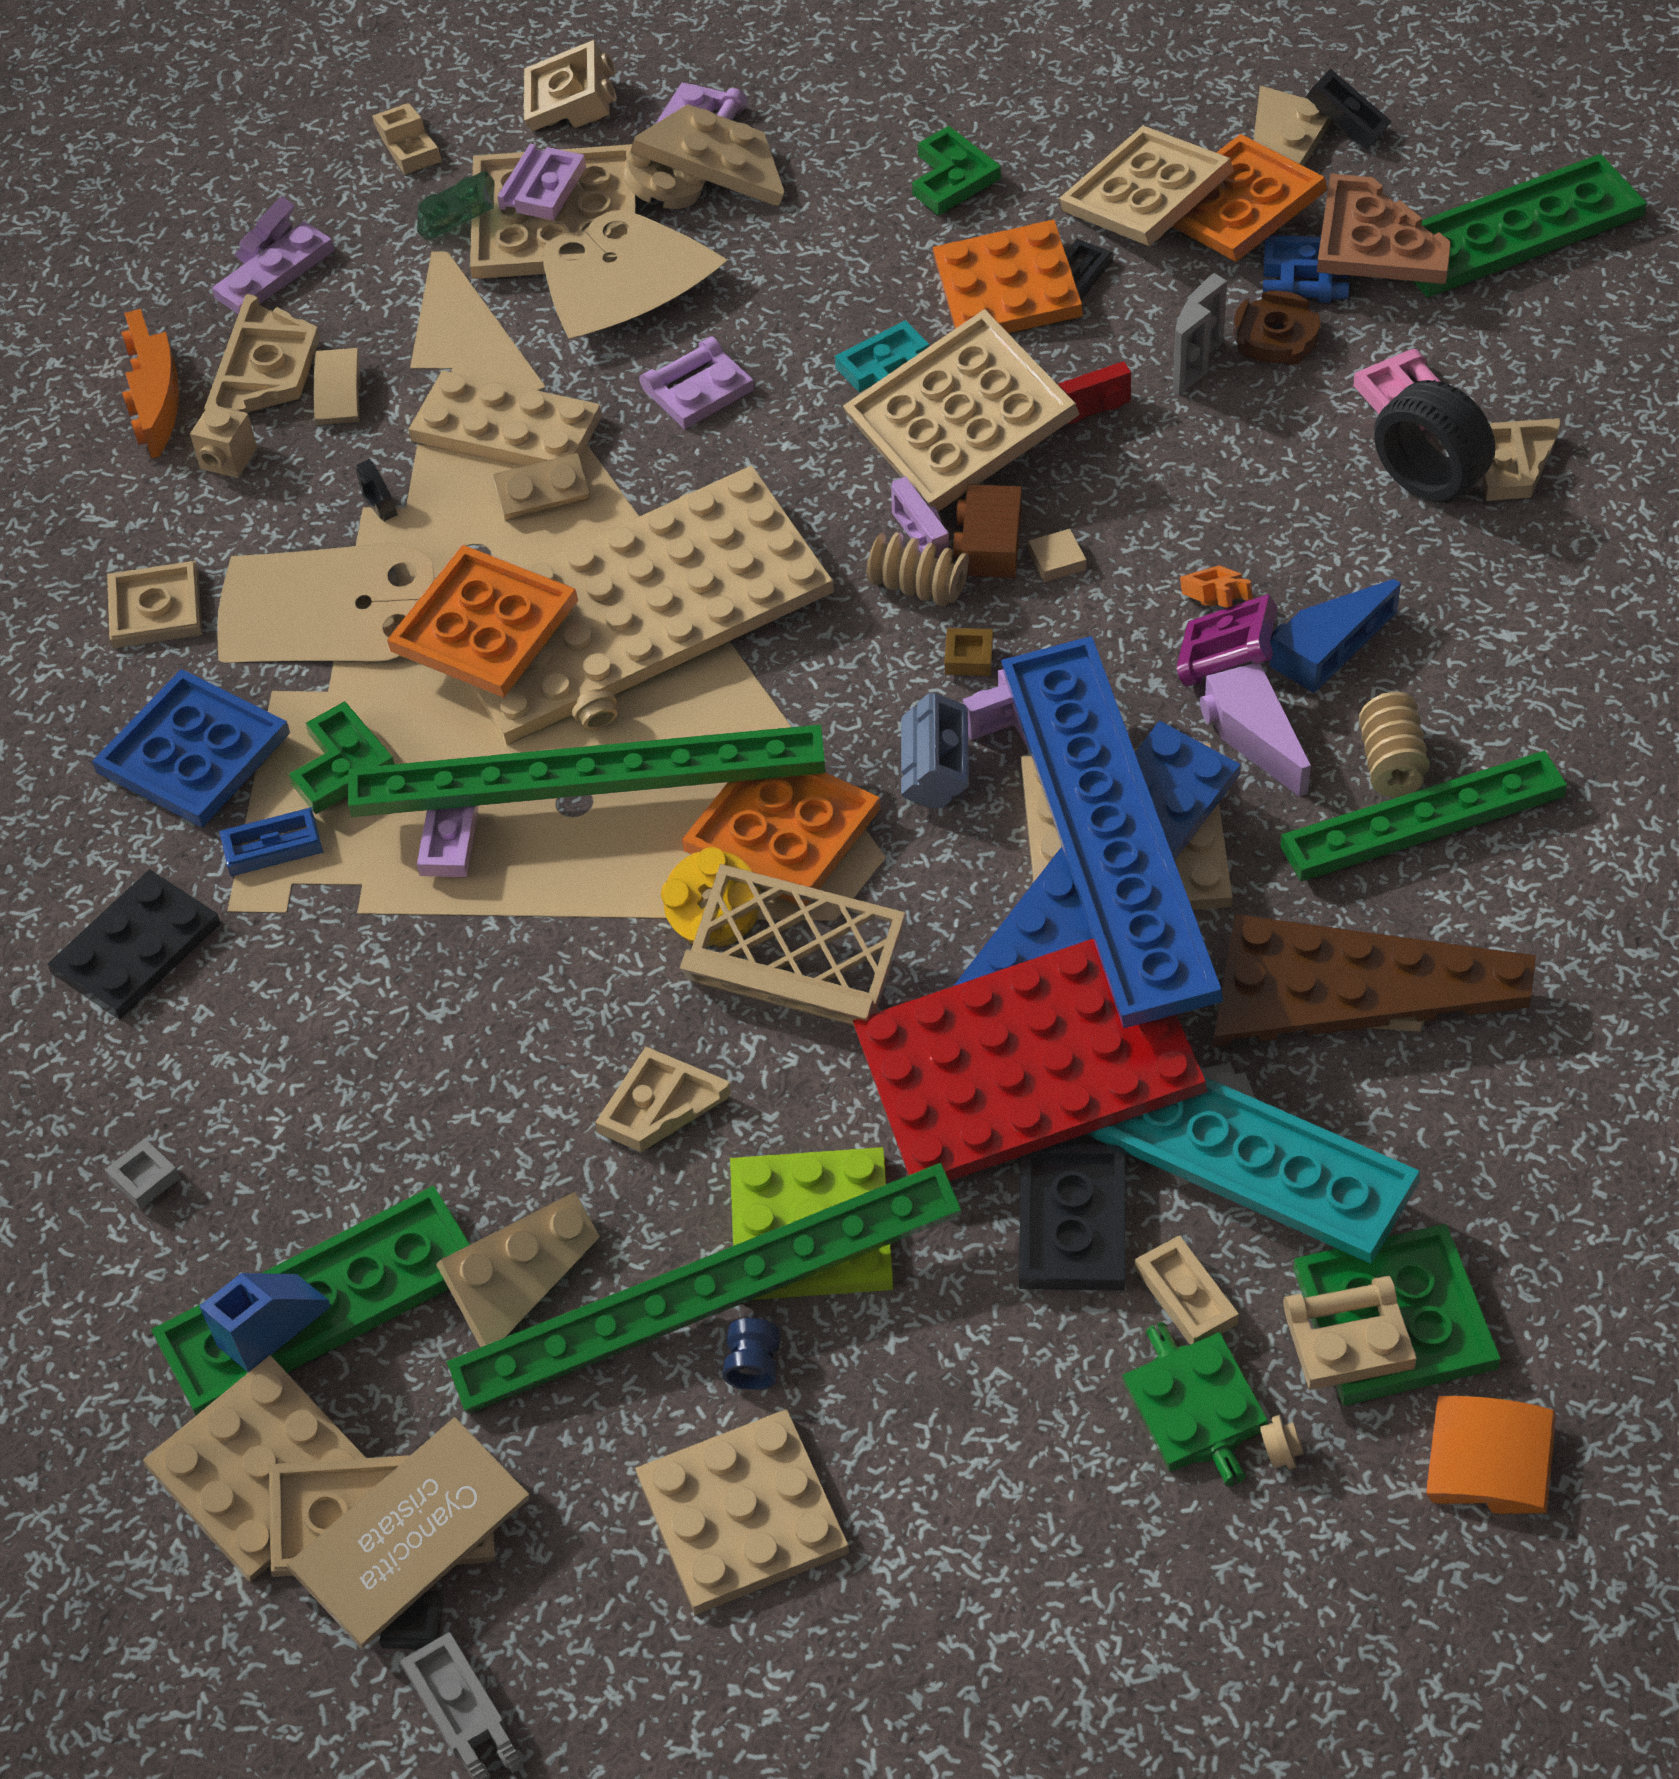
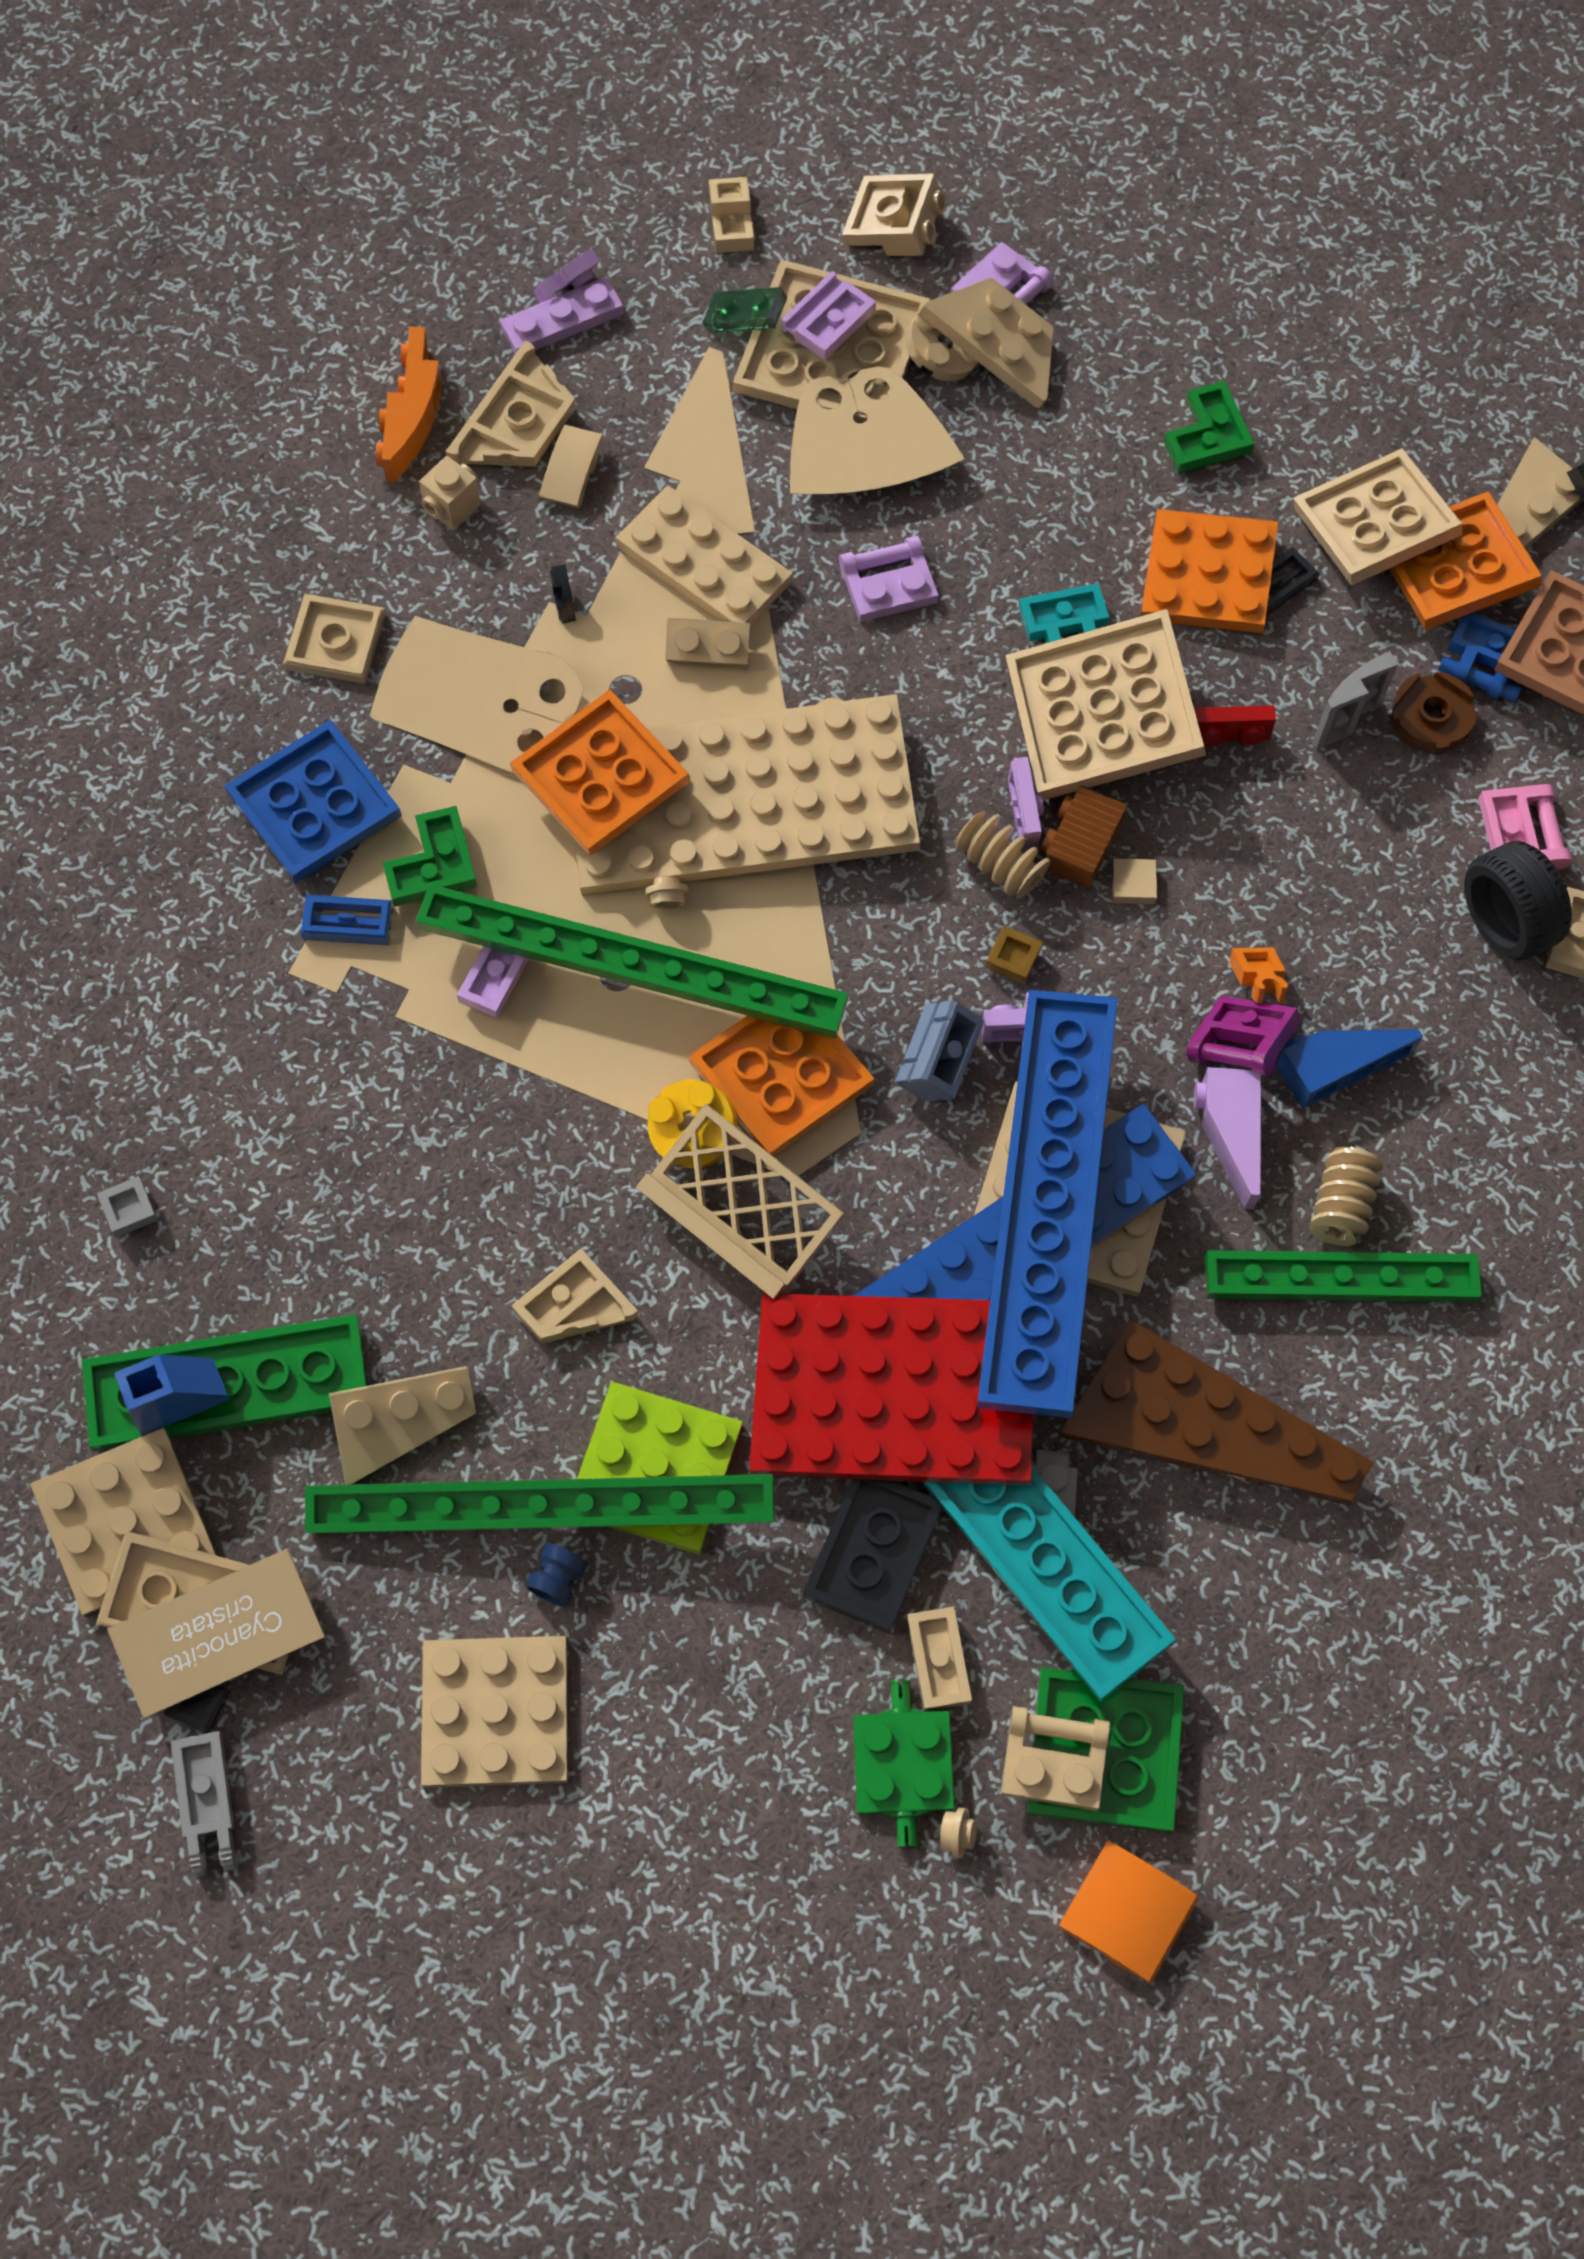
camera: 15 degrees right, 15 degrees up
(134, 944) = (199, 977): black plate -> none

